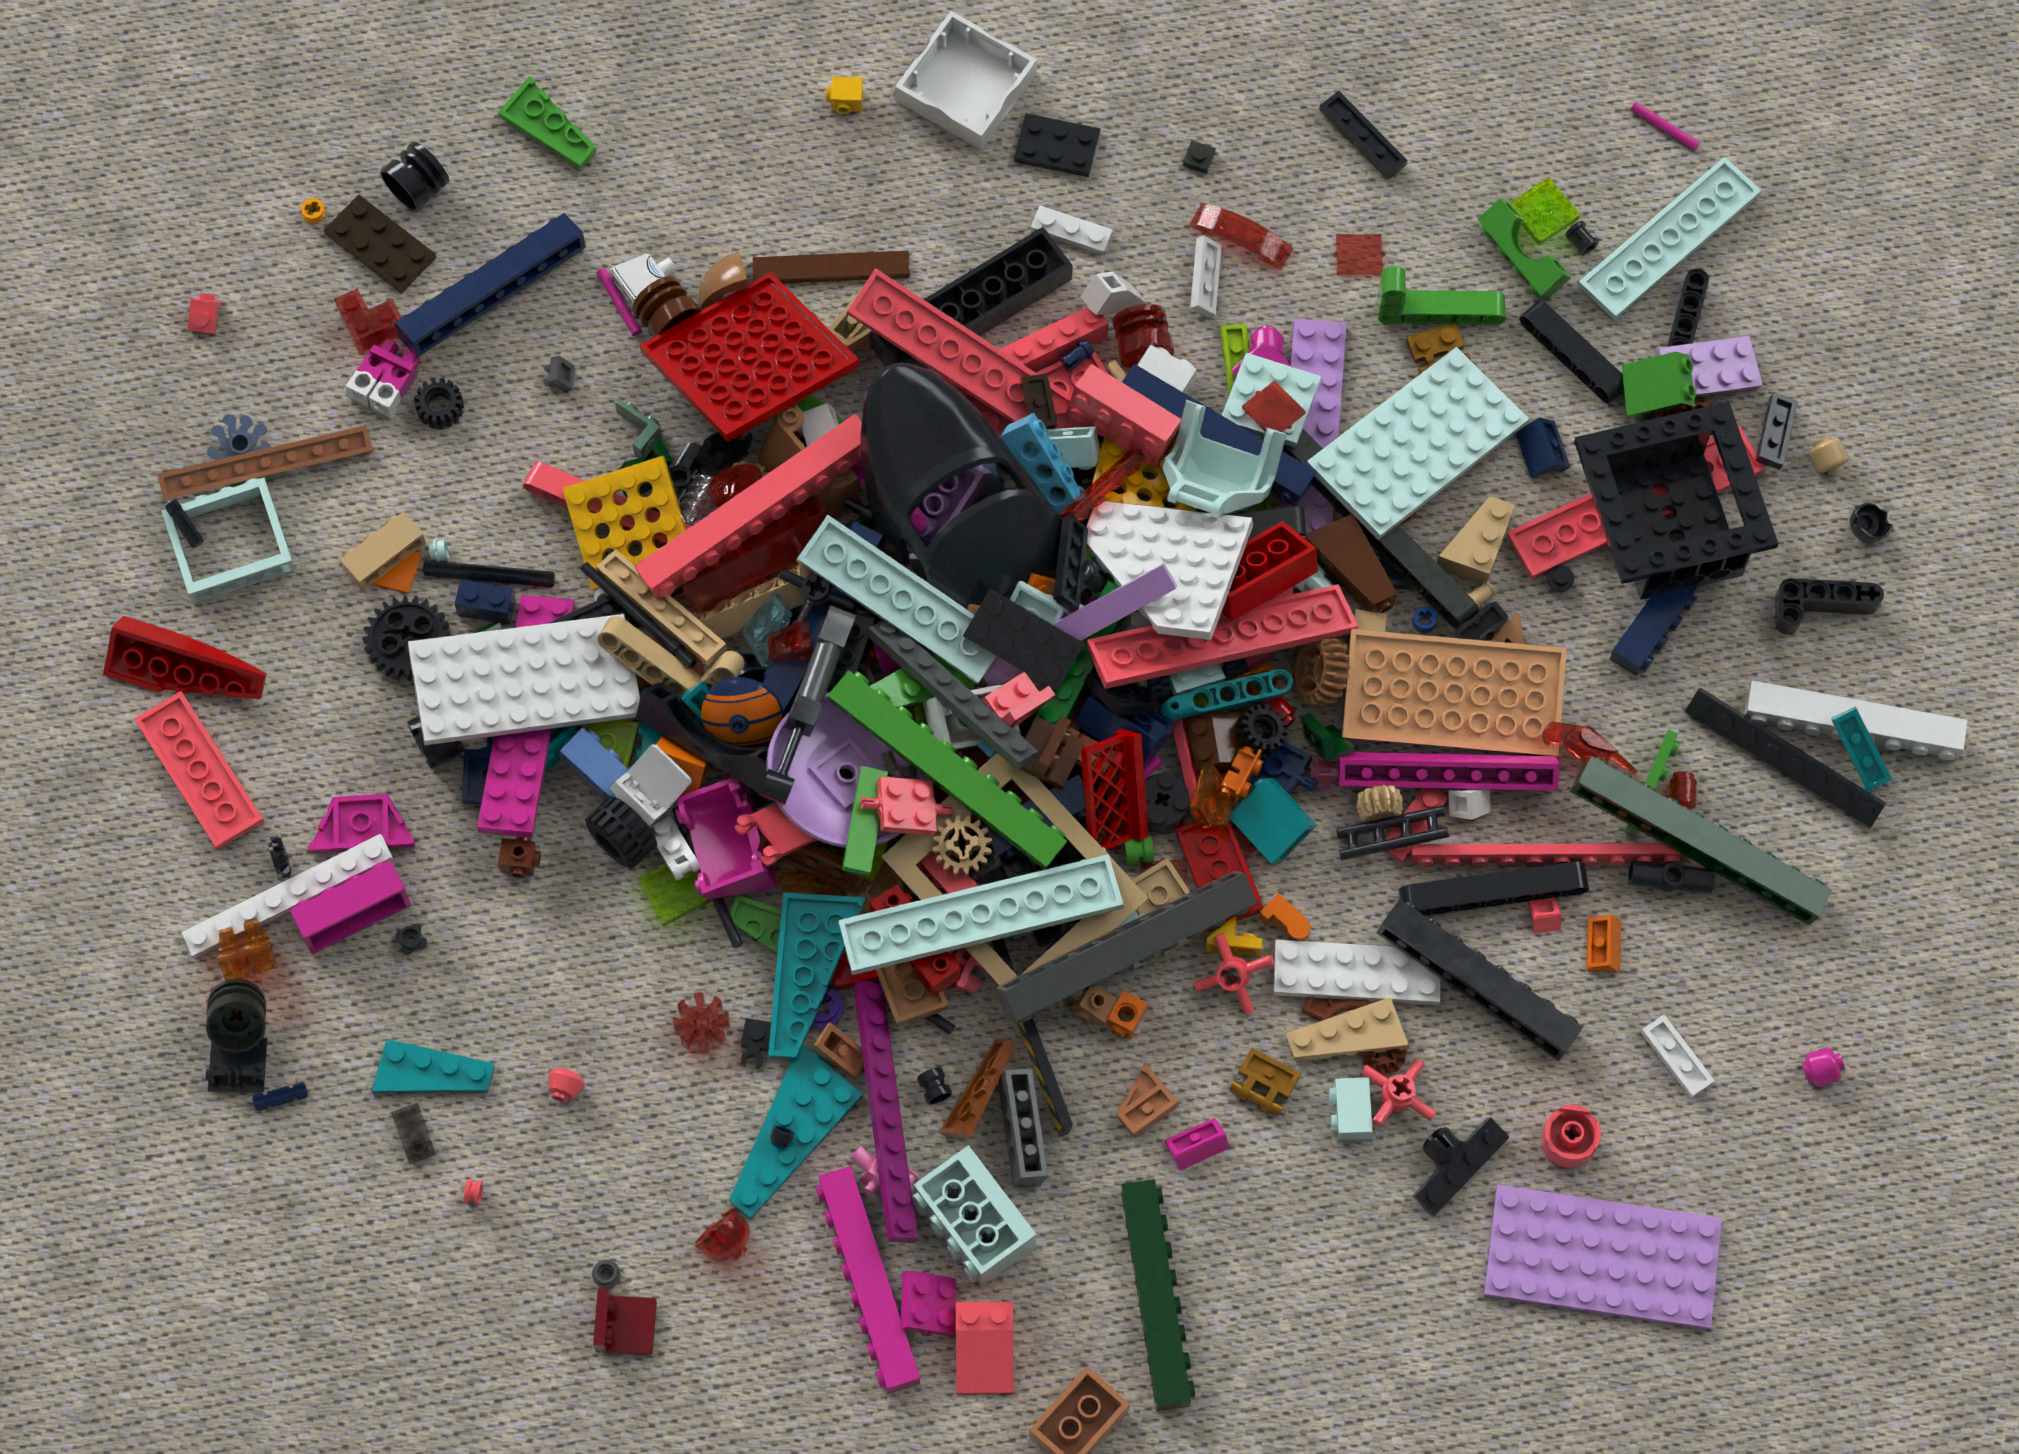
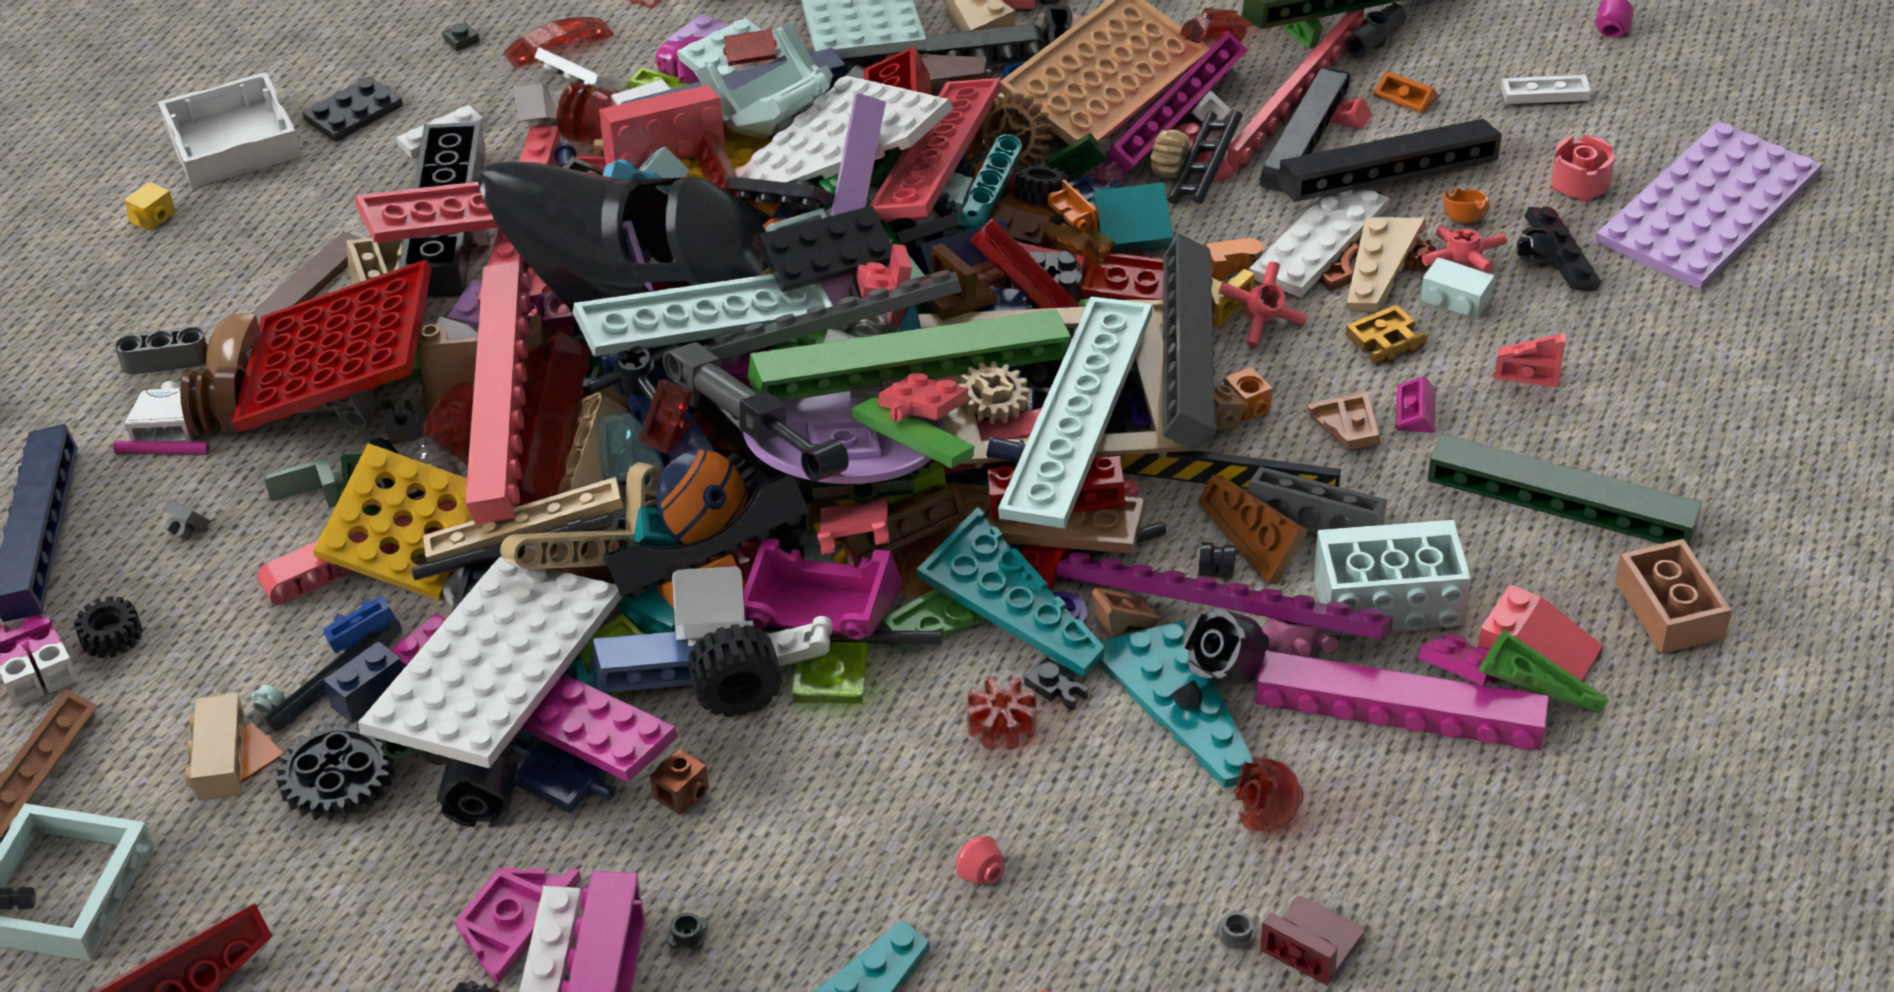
camera: 55 degrees left, 25 degrees down
(529, 560) = (349, 629): none -> blue plate
(703, 218) = (161, 350): none -> dark grey beam
(830, 1139) = (1225, 646): none -> black brick
(911, 887) = (1005, 449): none -> dark blue pin
(936, 1350) = (1522, 665): none -> bright green wing
(1288, 1208) = (1532, 361): none -> coral wing
(1465, 1065) = (1465, 205): none -> orange hair

